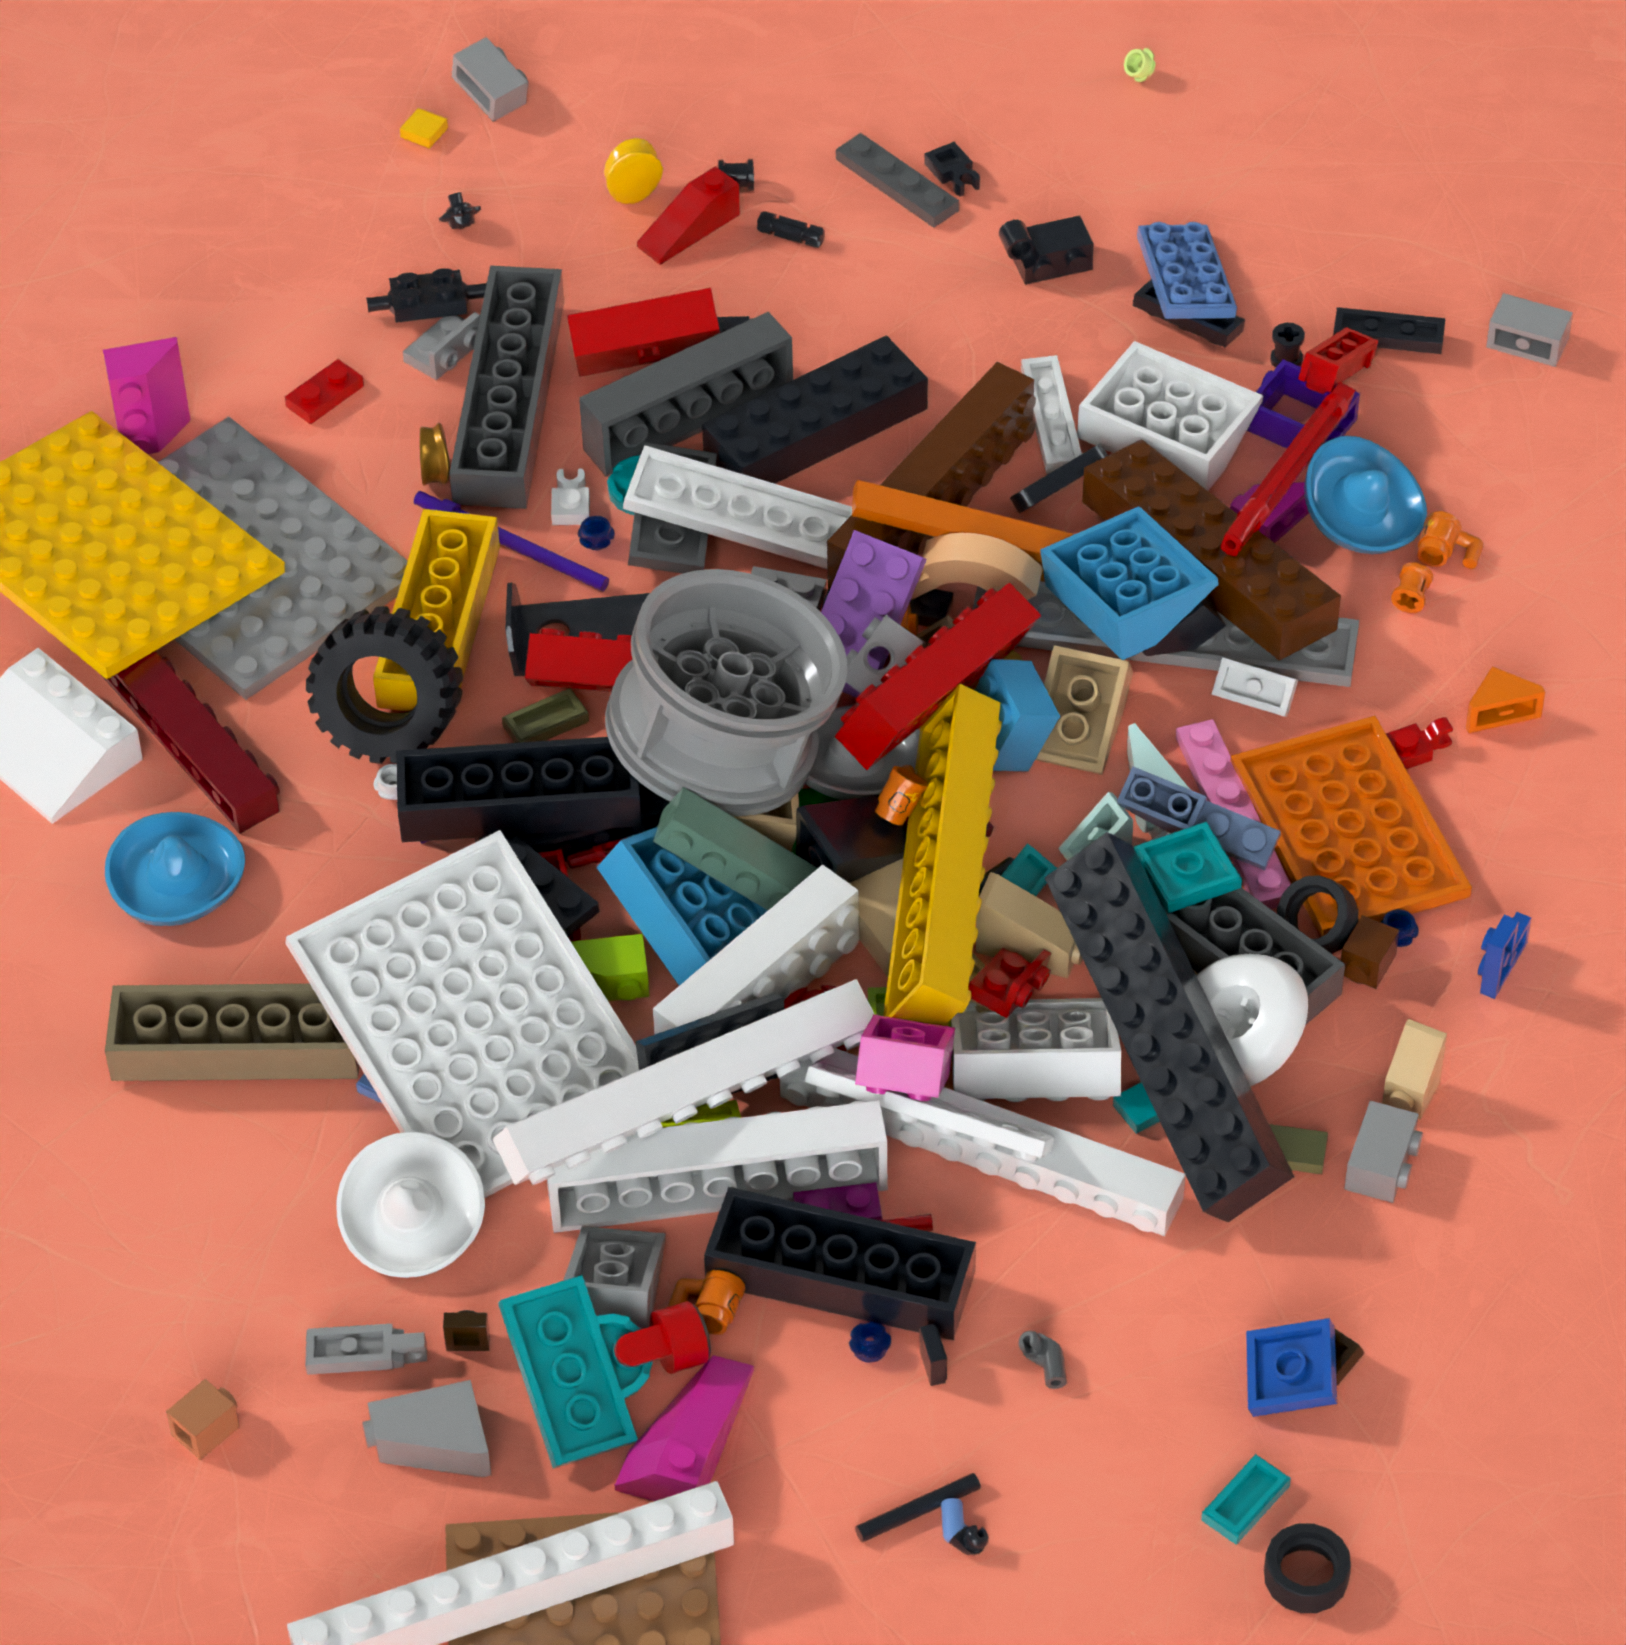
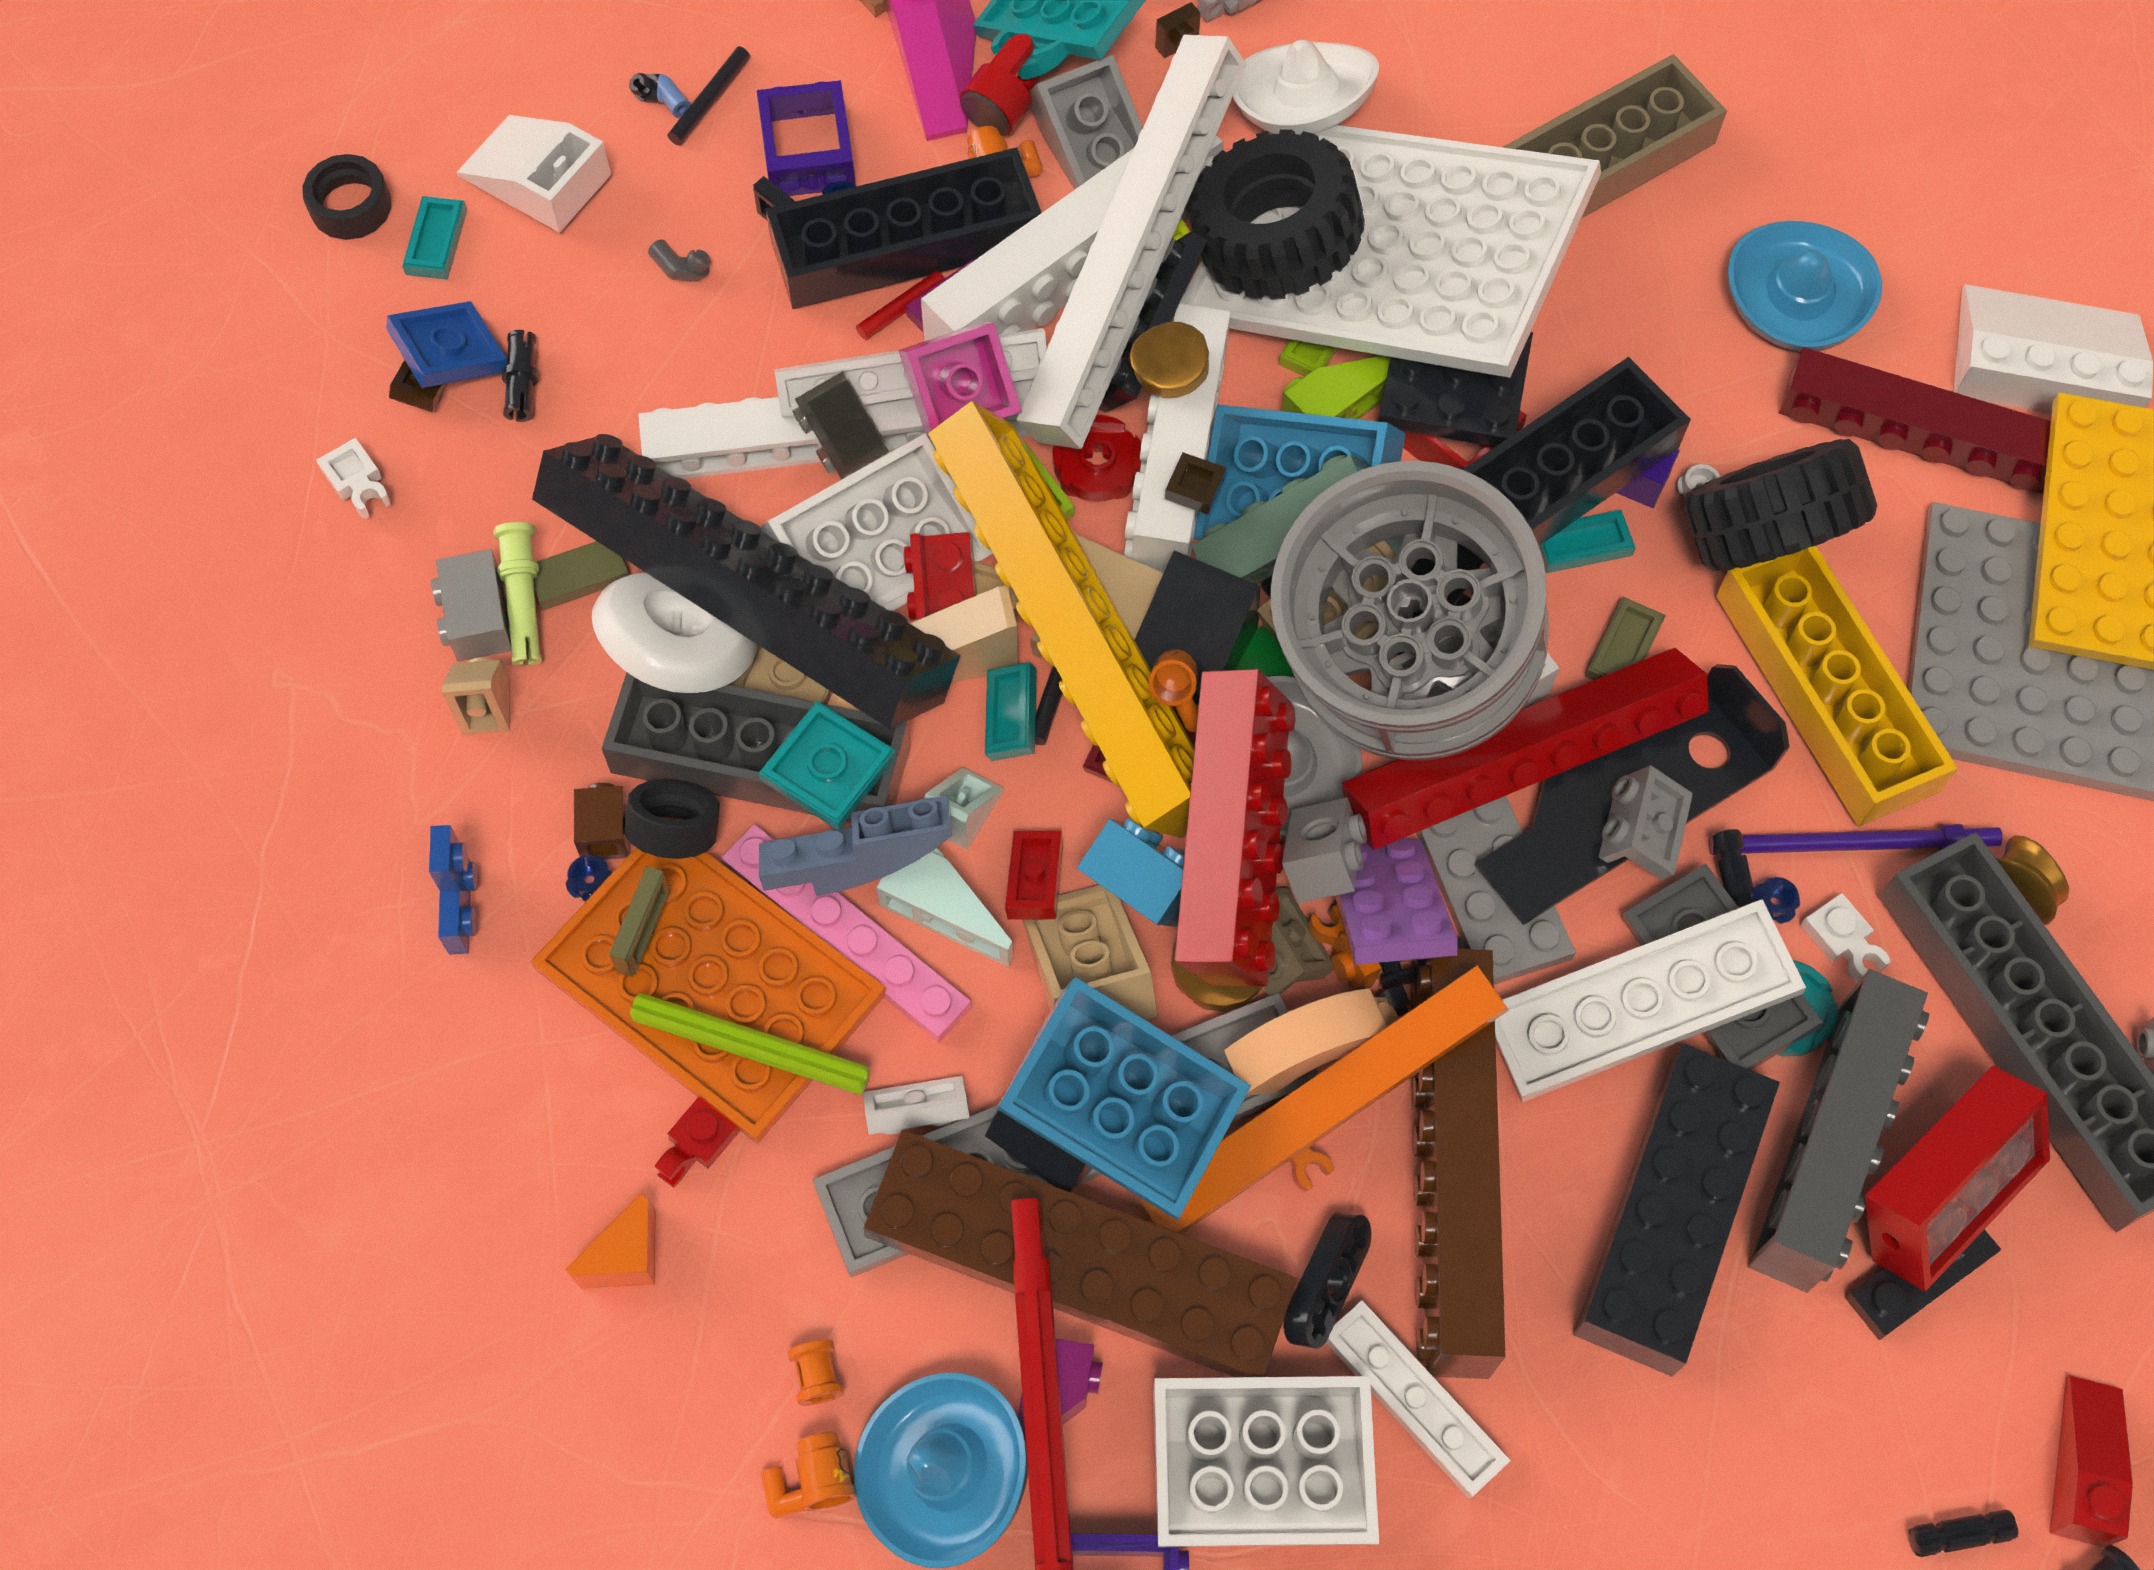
camera: 145 degrees right, 15 degrees up
(542, 1017) = (1270, 175): none -> black tyre
(610, 552) = (1734, 866): none -> black axle
(630, 593) = (1646, 821): none -> light grey bracket
(735, 978) = (1170, 359): none -> pearl gold piece
(790, 884) = (1195, 483): none -> dark brown plate
(875, 1368) = (801, 101): none -> dark purple window
(1015, 1094) = (840, 424): none -> clear smoke brick
(1080, 770) = (1034, 875): none -> red plate
(1122, 1497) = (539, 168): none -> slope
(1239, 1321) = (519, 375): none -> black pin
(1335, 1146) = (518, 573): none -> yellowish green pin
(1347, 758) = (750, 1043): none -> lime axle
(1380, 854) = (640, 922): none -> olive tile
(1426, 1310) = (353, 475): none -> white plate

